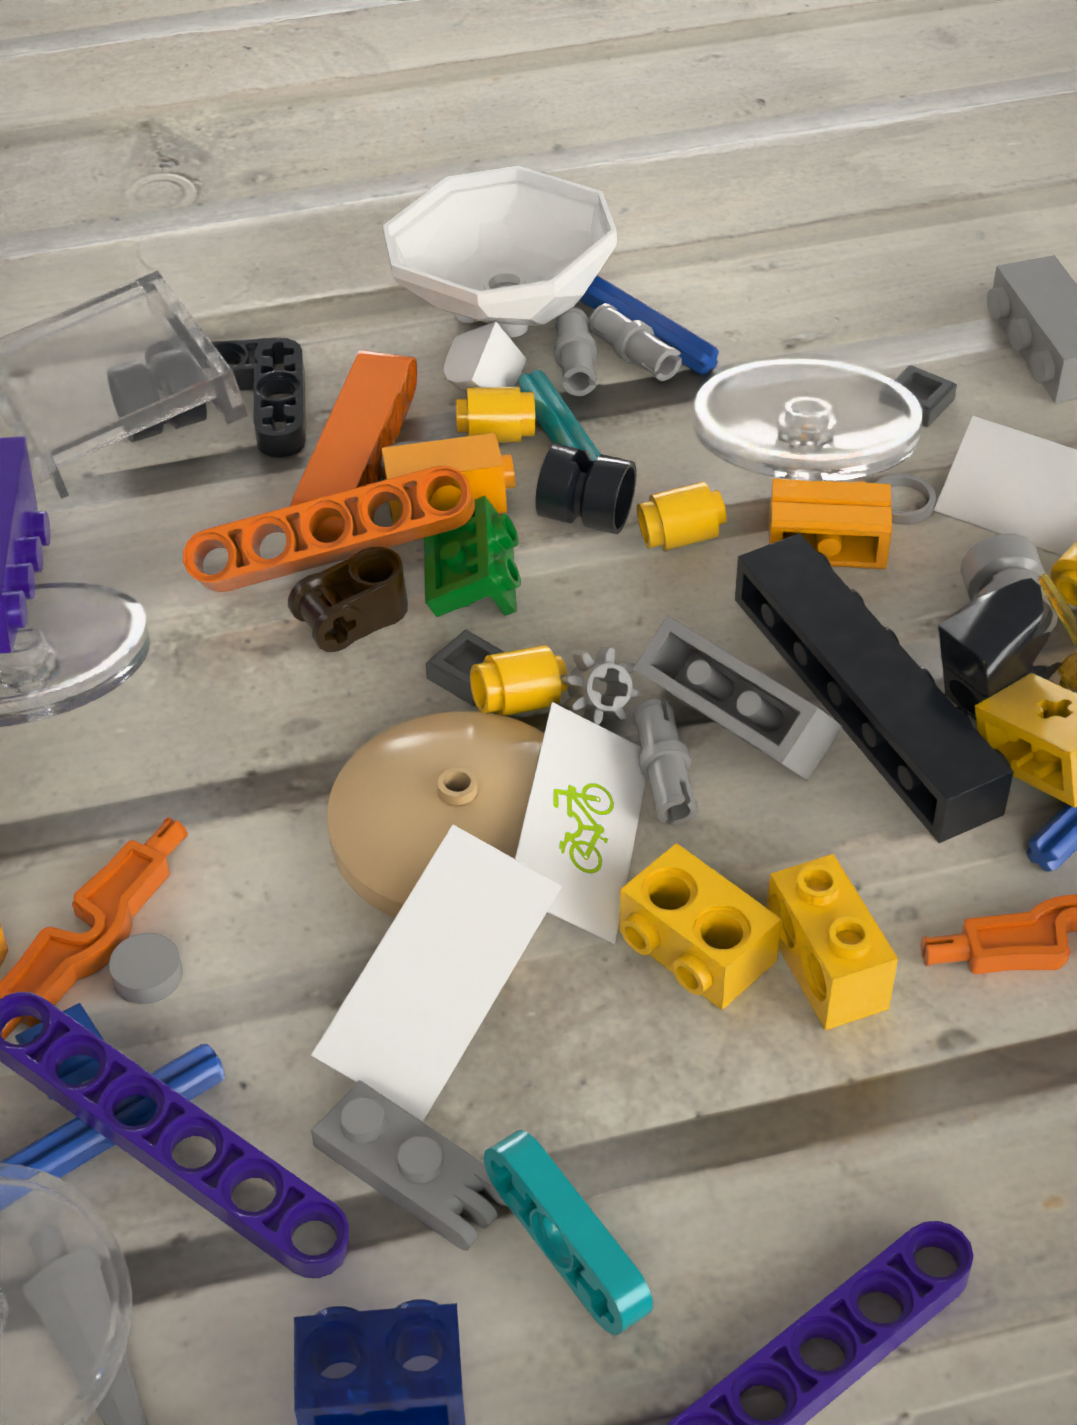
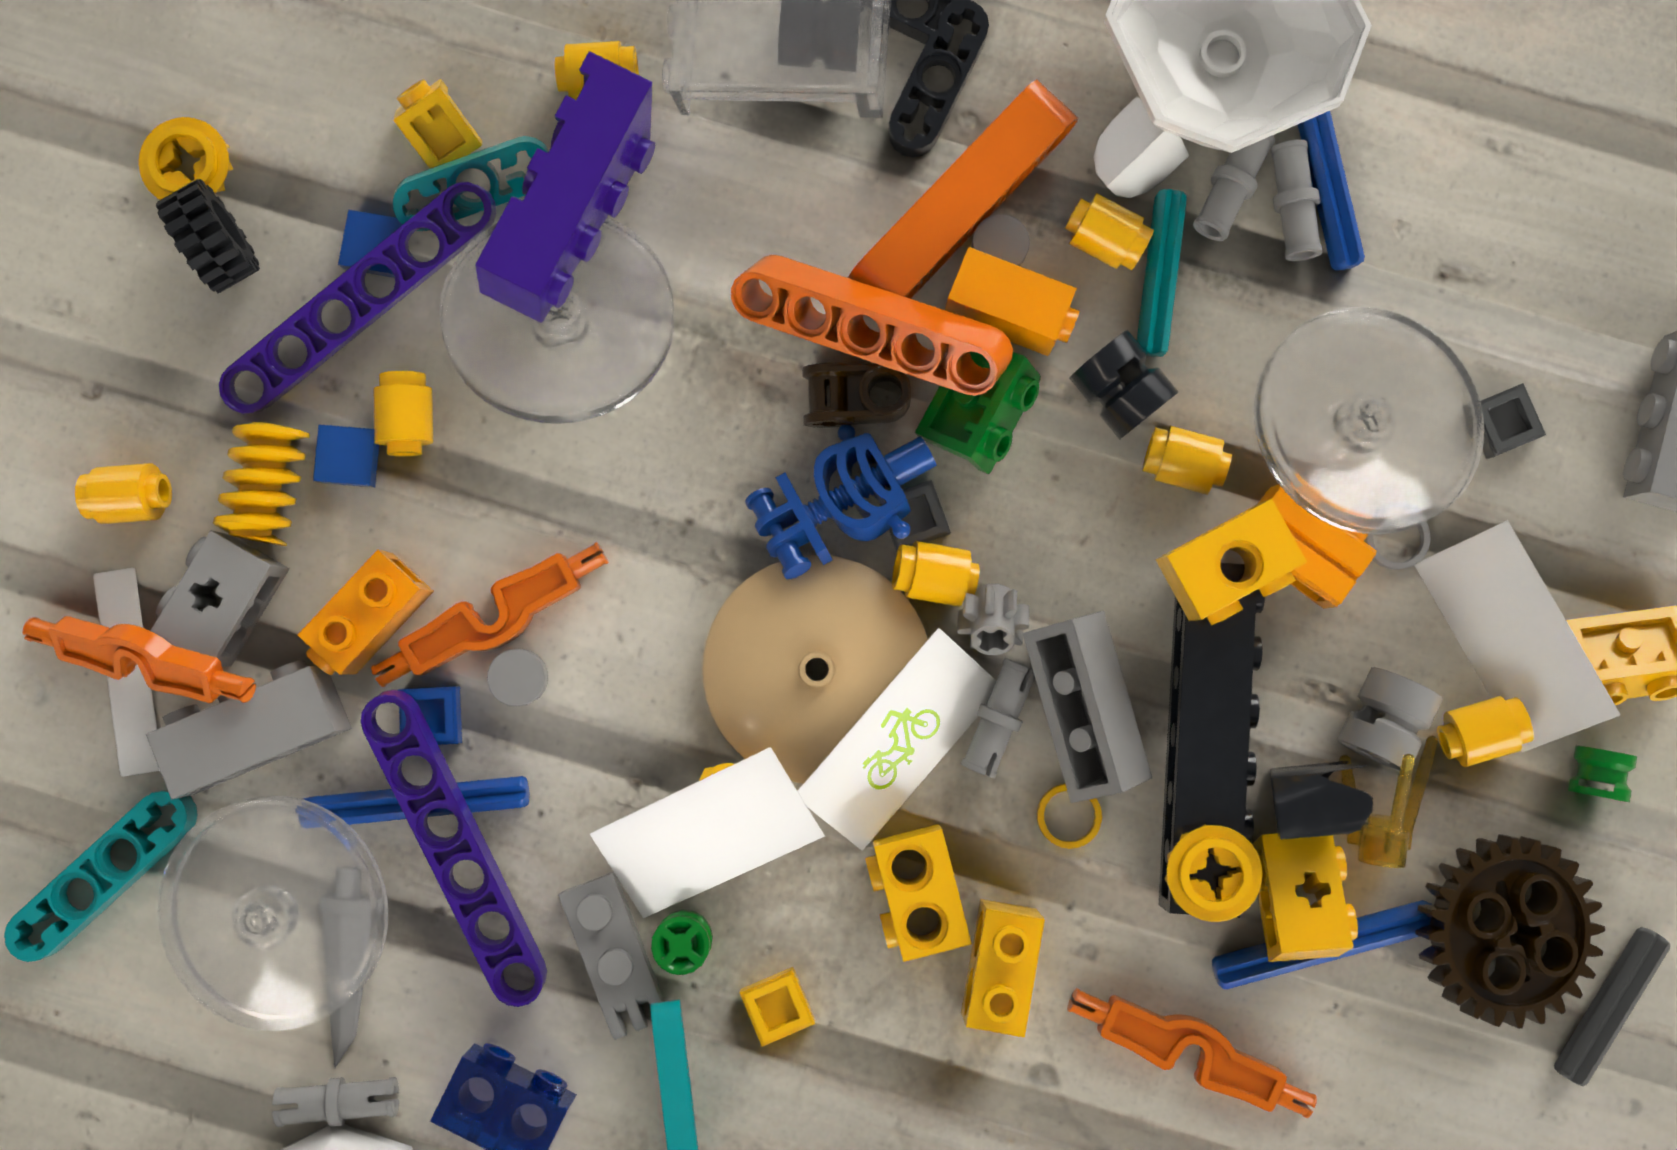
camera: 30 degrees right, 40 degrees up
(392, 661) = (890, 471): none -> blue torso
(465, 1090) = (675, 951): none -> green wheel
(628, 1119) = (777, 1006): none -> yellow tile
(771, 522) = (1258, 538): none -> yellow brick
(794, 789) = (1061, 843): none -> yellow piece
(956, 718) = (1235, 890): none -> yellow gear

